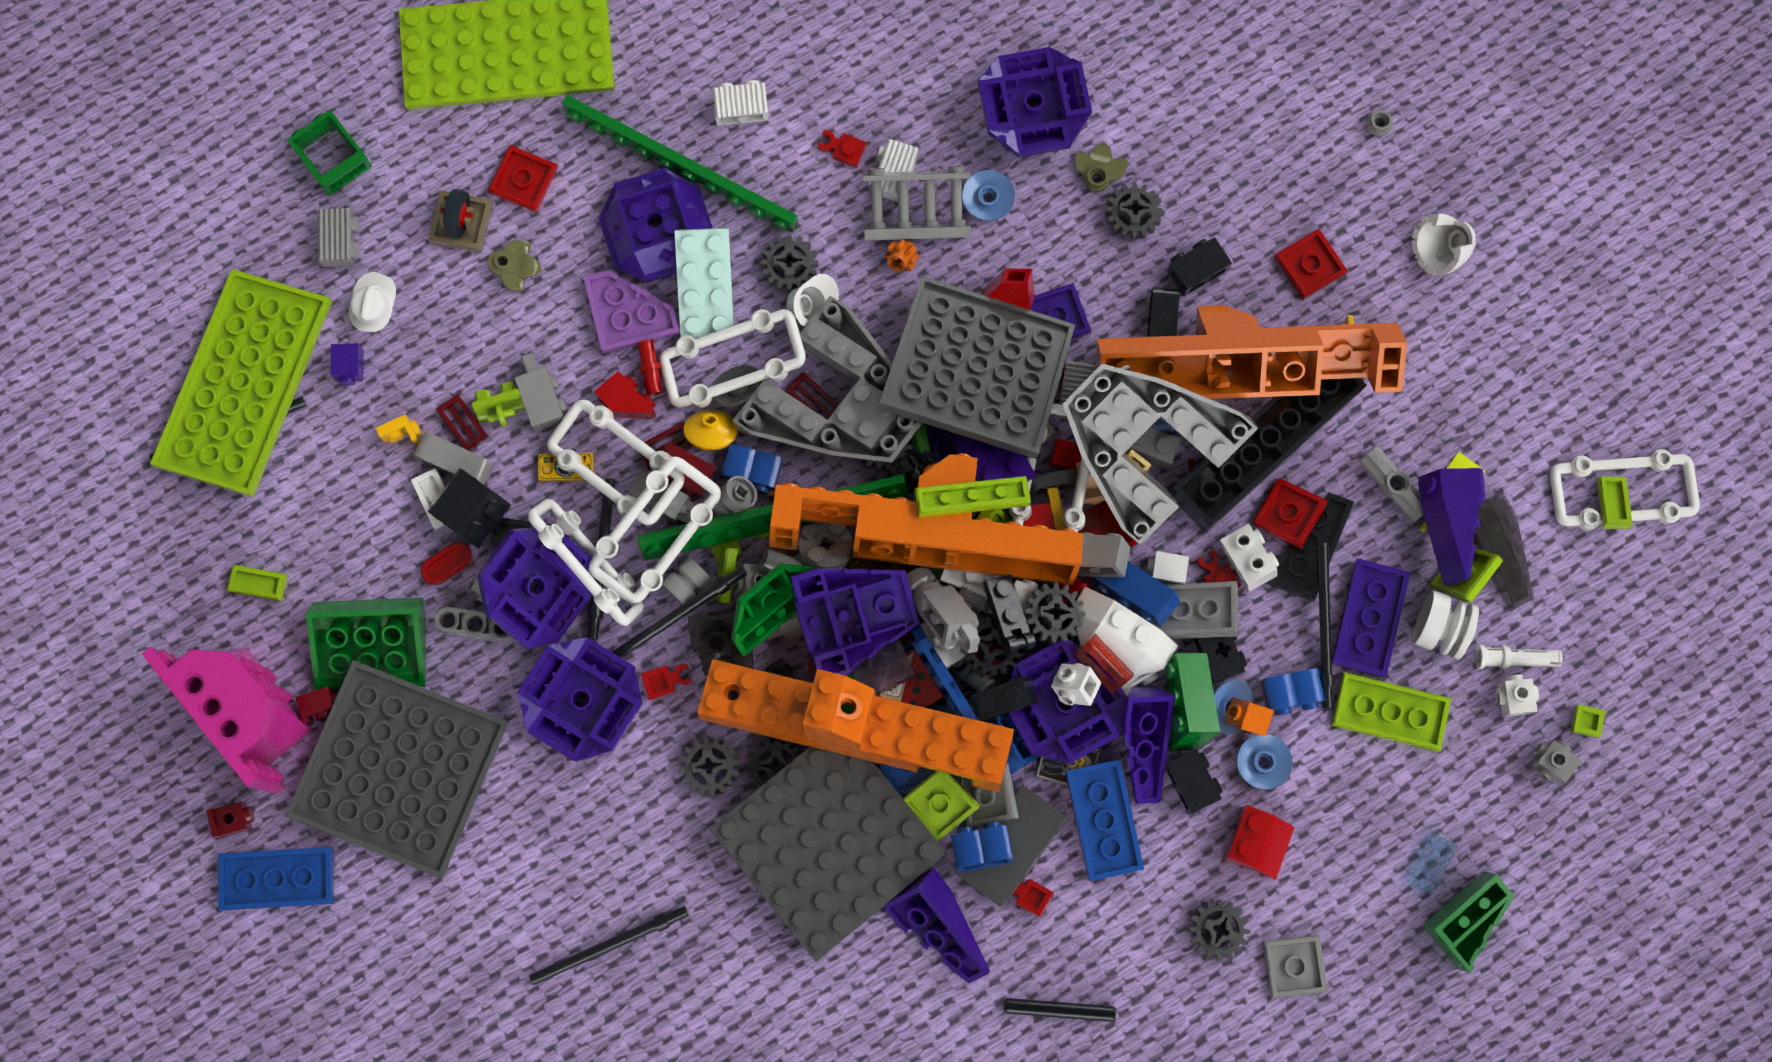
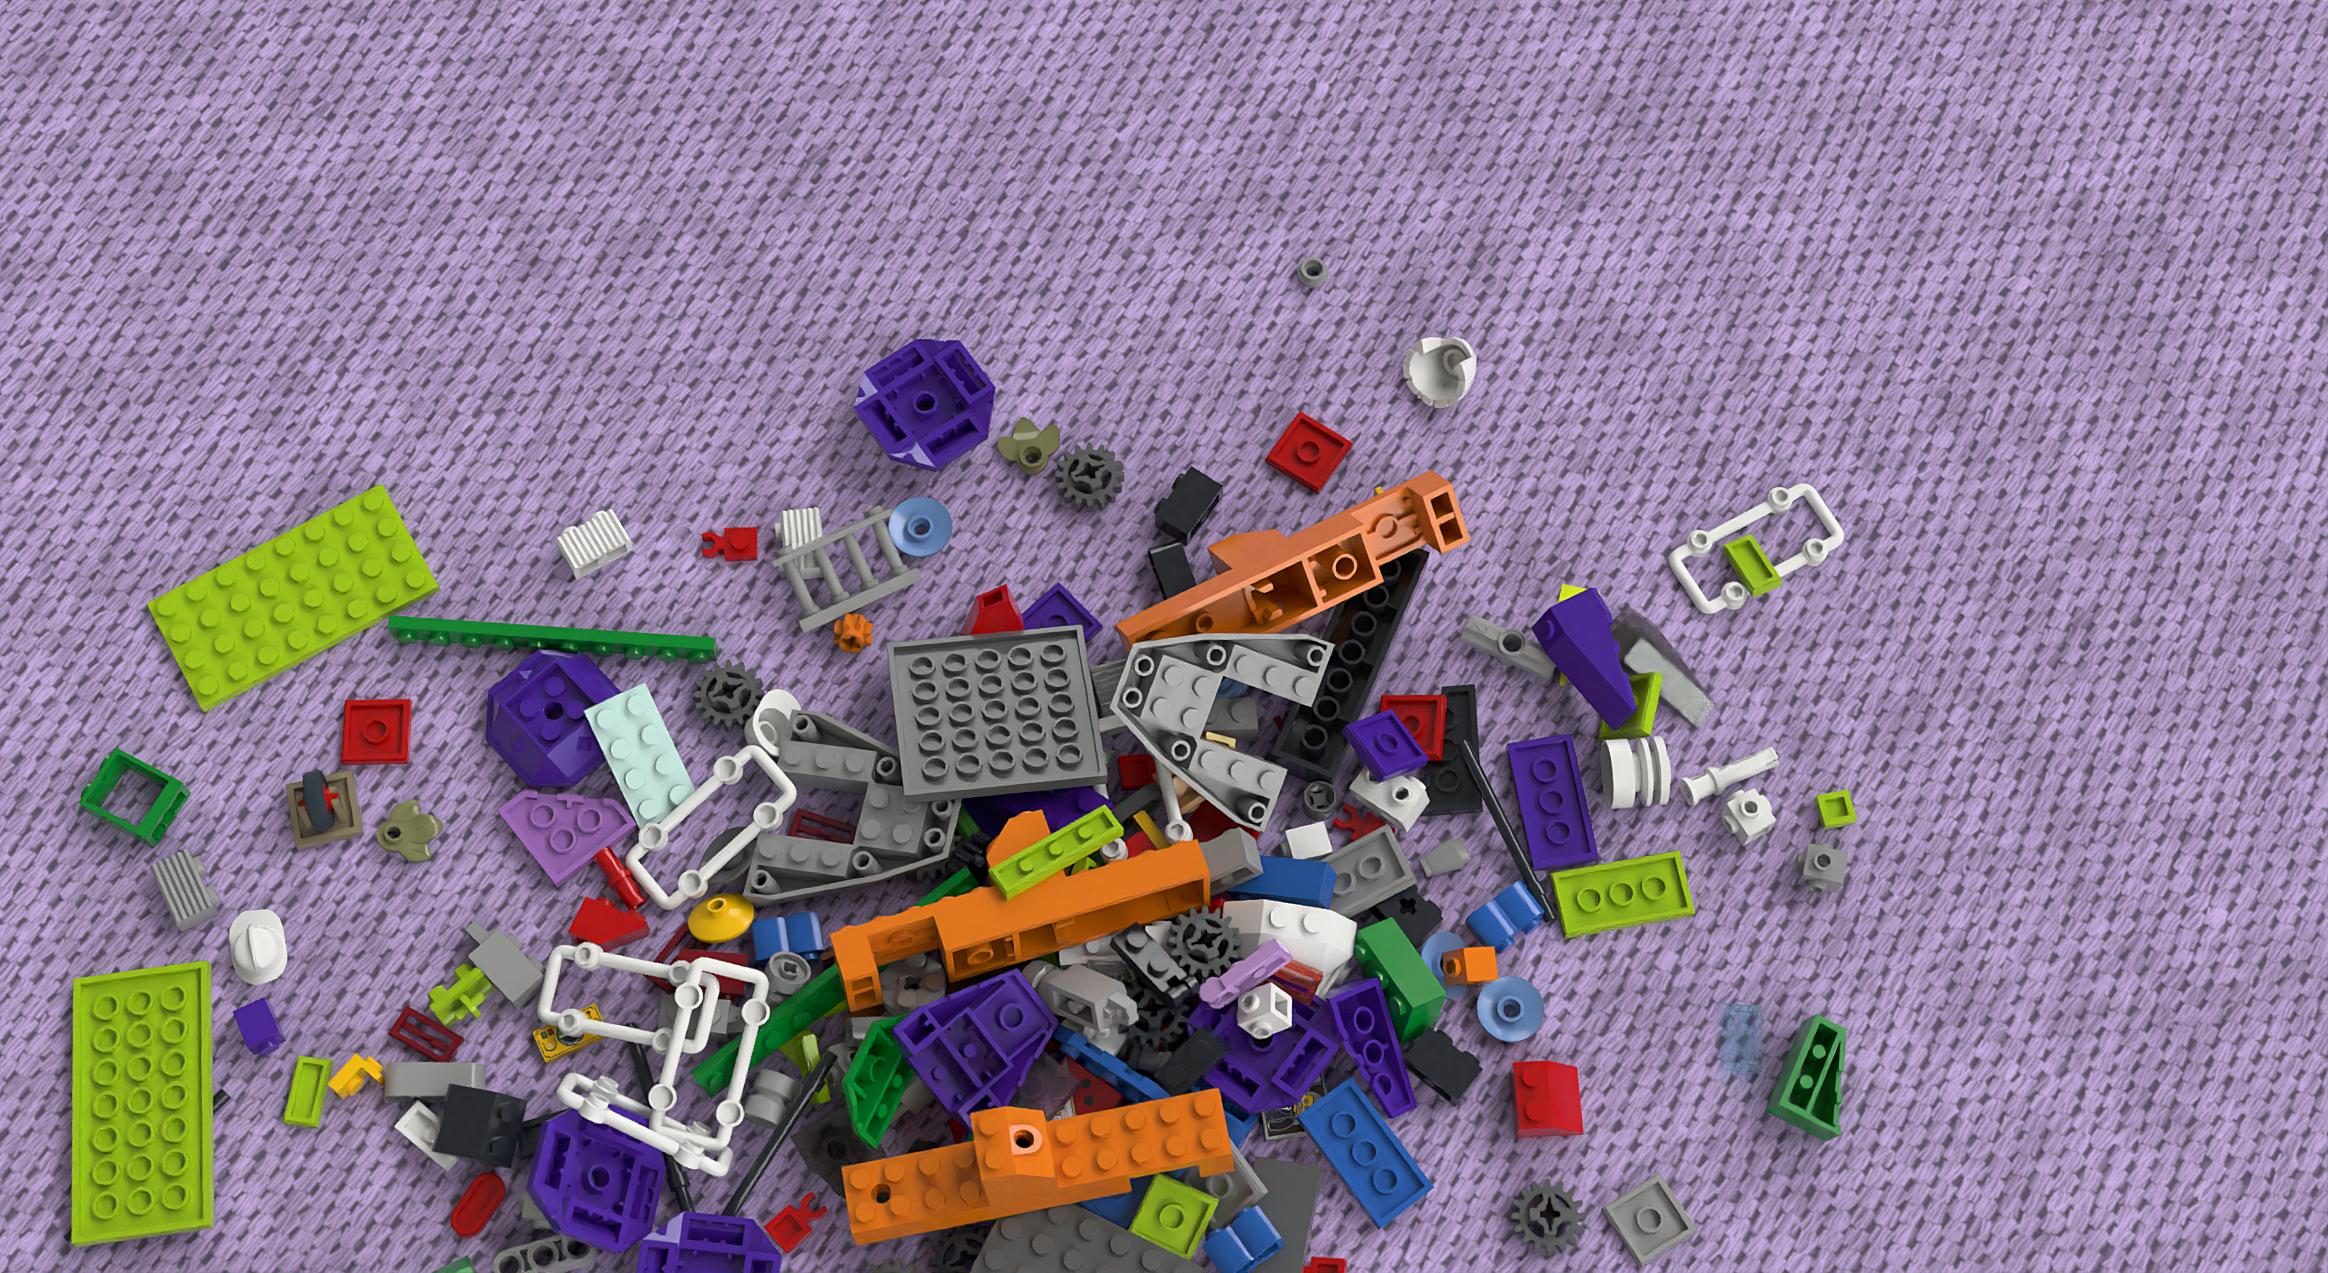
camera: 25 degrees left, 10 degrees down
(362, 426) = (308, 1092): none -> lime tile
(1074, 651) = (1245, 974): none -> lavender hinge
(1197, 536) = (1321, 794): none -> dark grey wheel
(1262, 520) = (1385, 745): none -> dark purple tile
(1269, 624) = (1445, 858): none -> light grey cone

